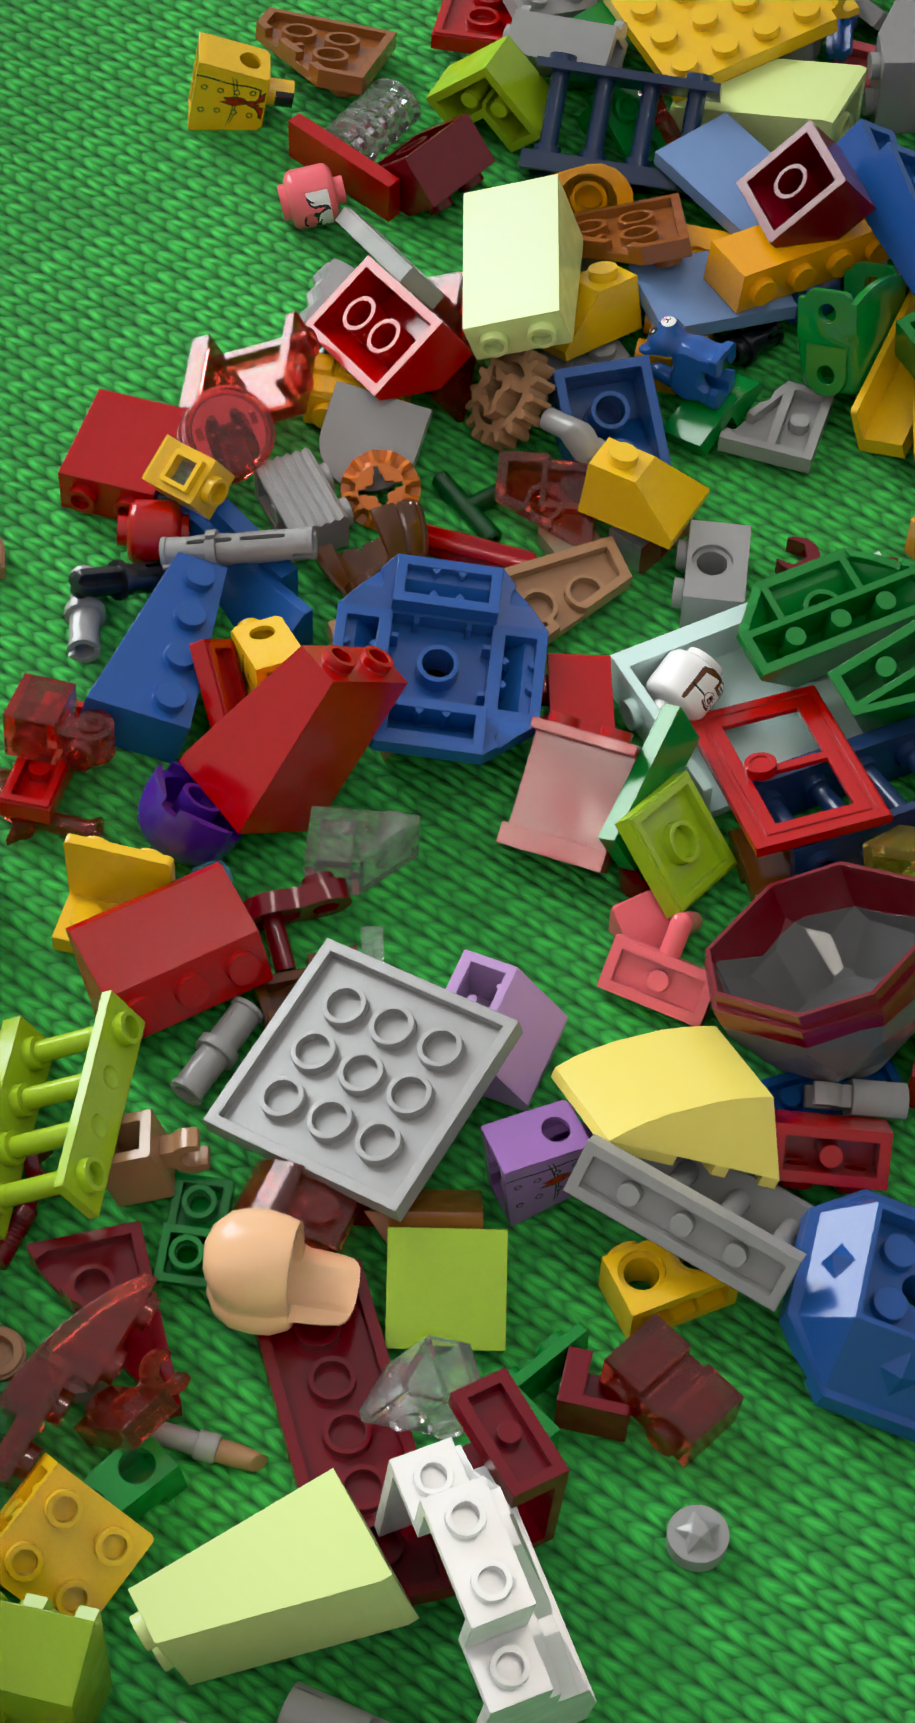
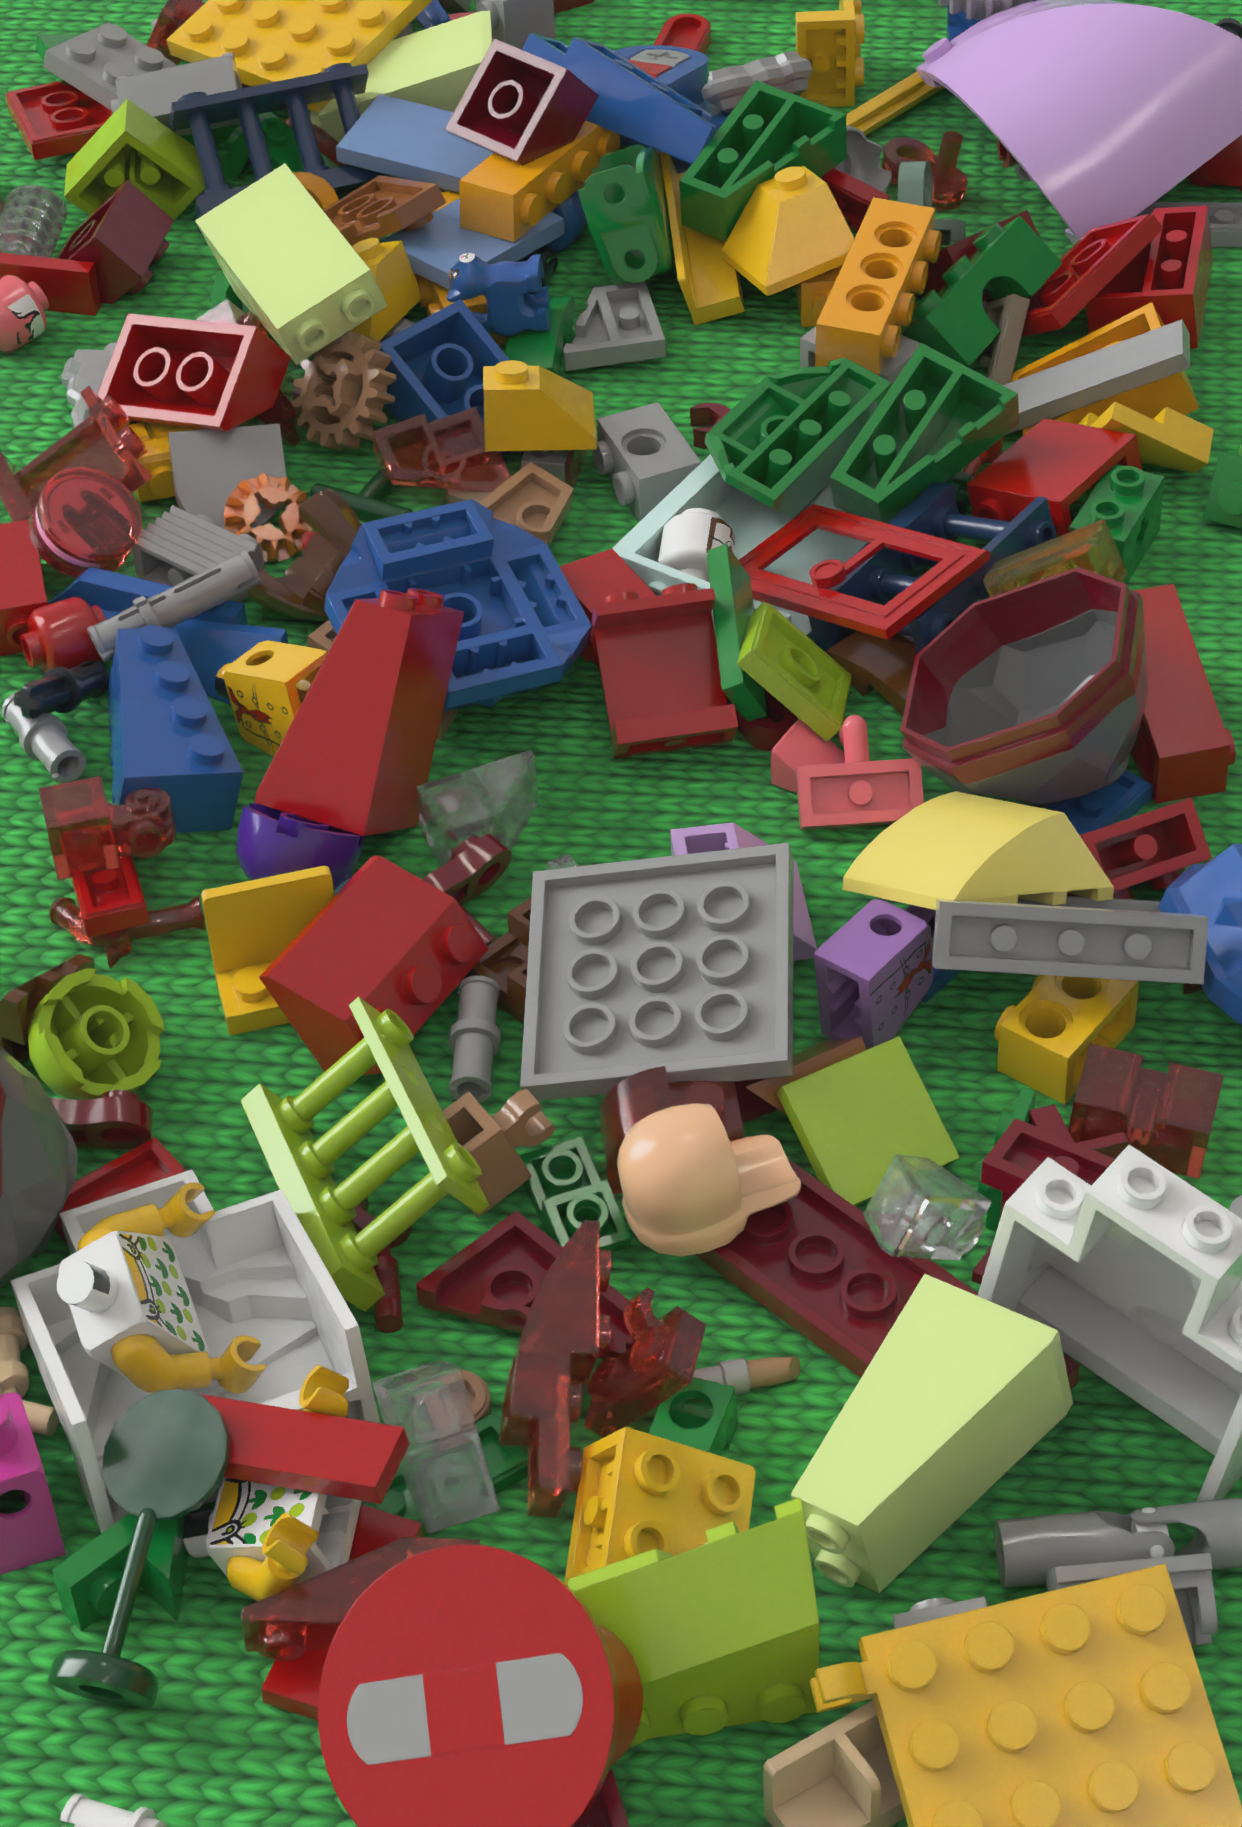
camera: 25 degrees left, 10 degrees down
(188, 477) = (81, 564): yellow window -> none
(218, 676) = (240, 721): red tile -> none
(390, 257) = (106, 319): light grey tile -> none
(575, 434) = (435, 389): light grey arm -> none
(860, 1098) = (1123, 800): light grey bar -> none

